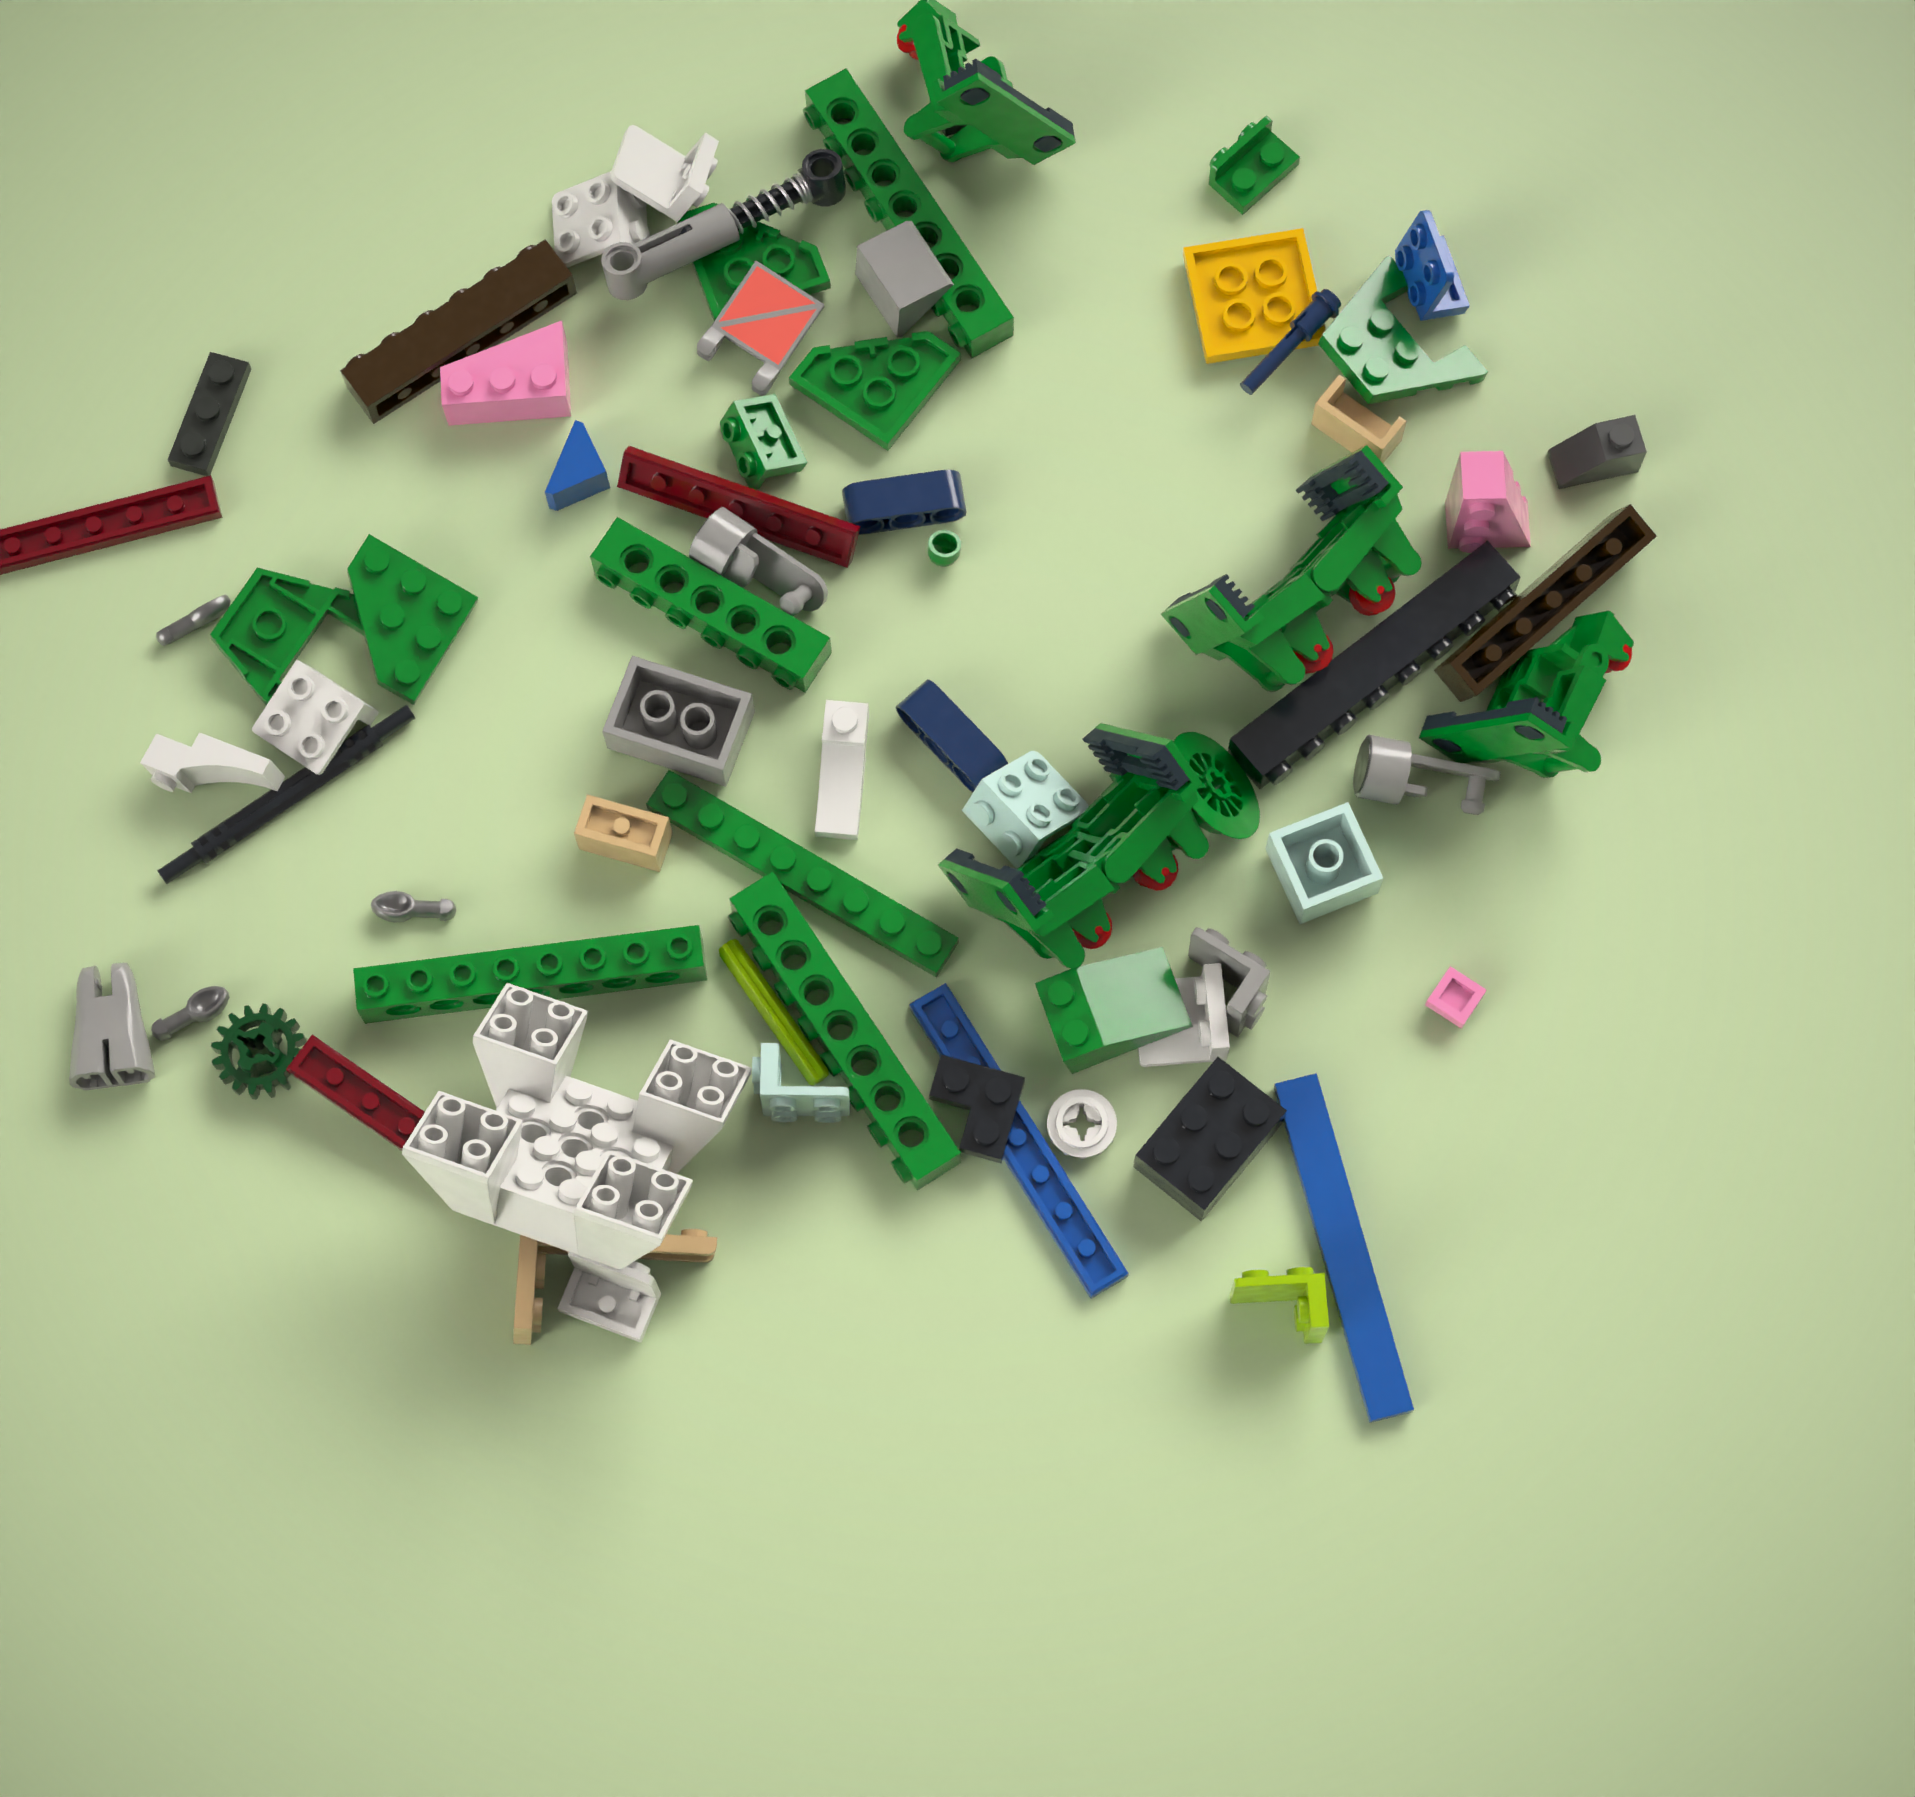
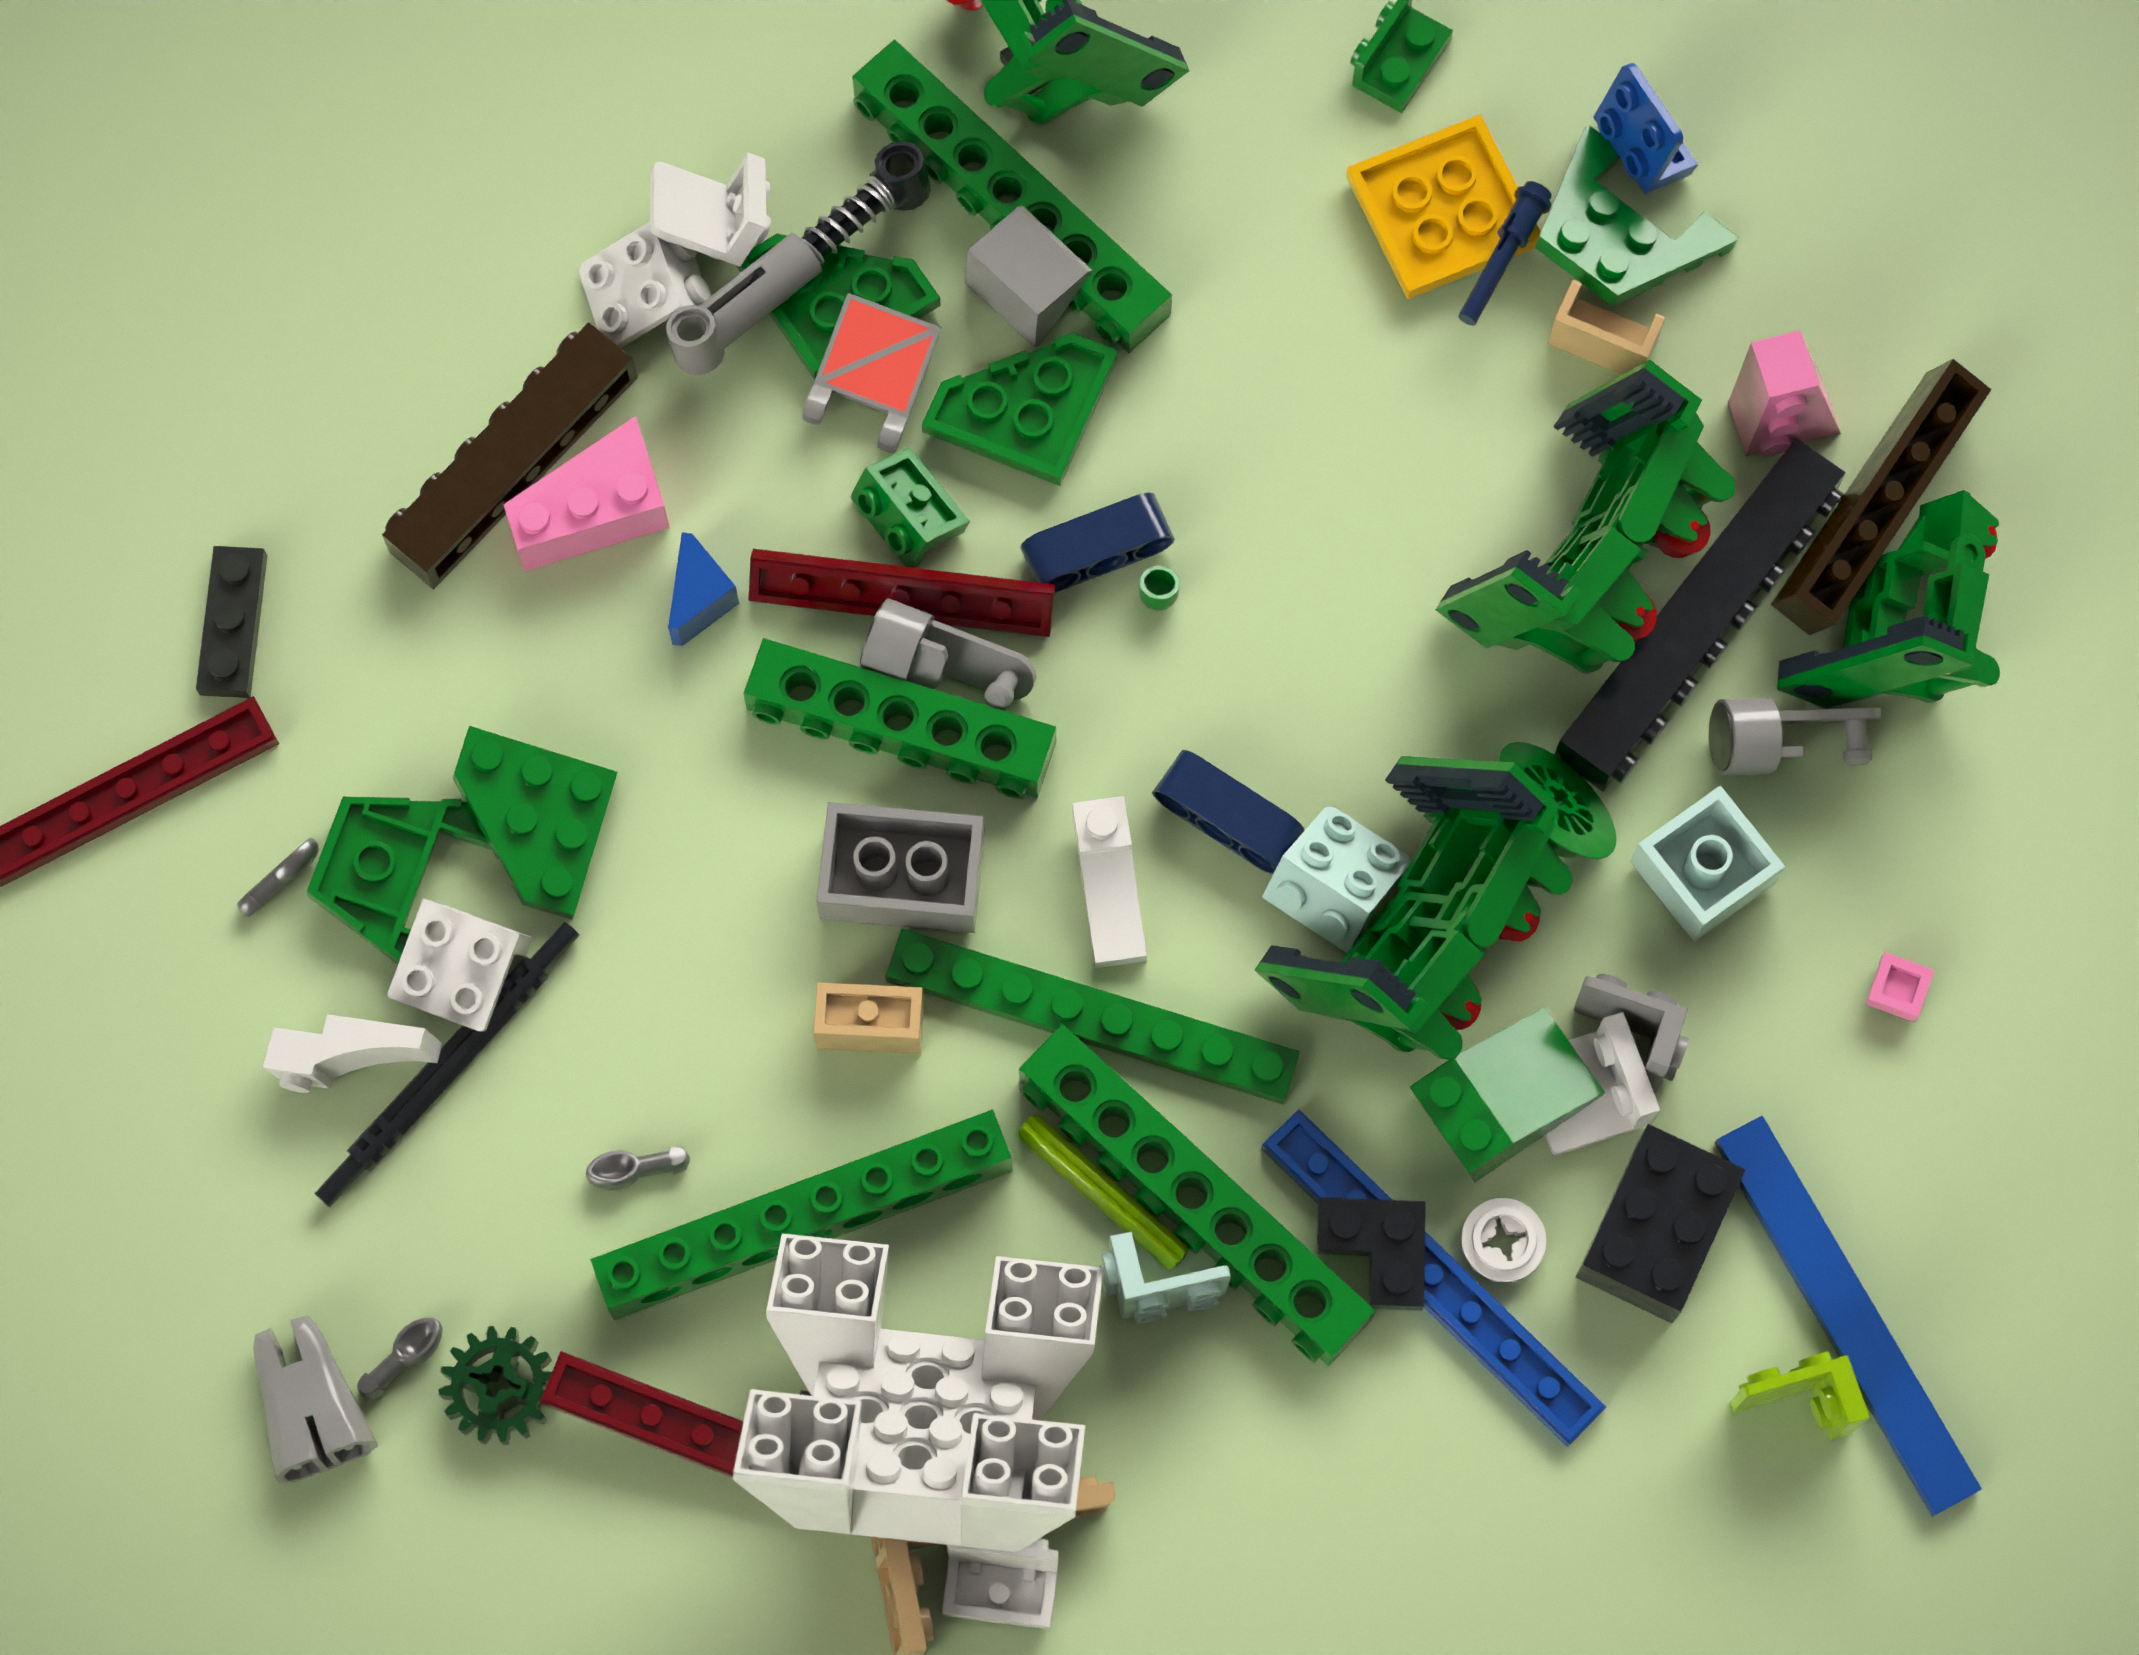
camera: 15 degrees left, 0 degrees up
(1599, 453) = (1893, 305): dark grey slope -> none

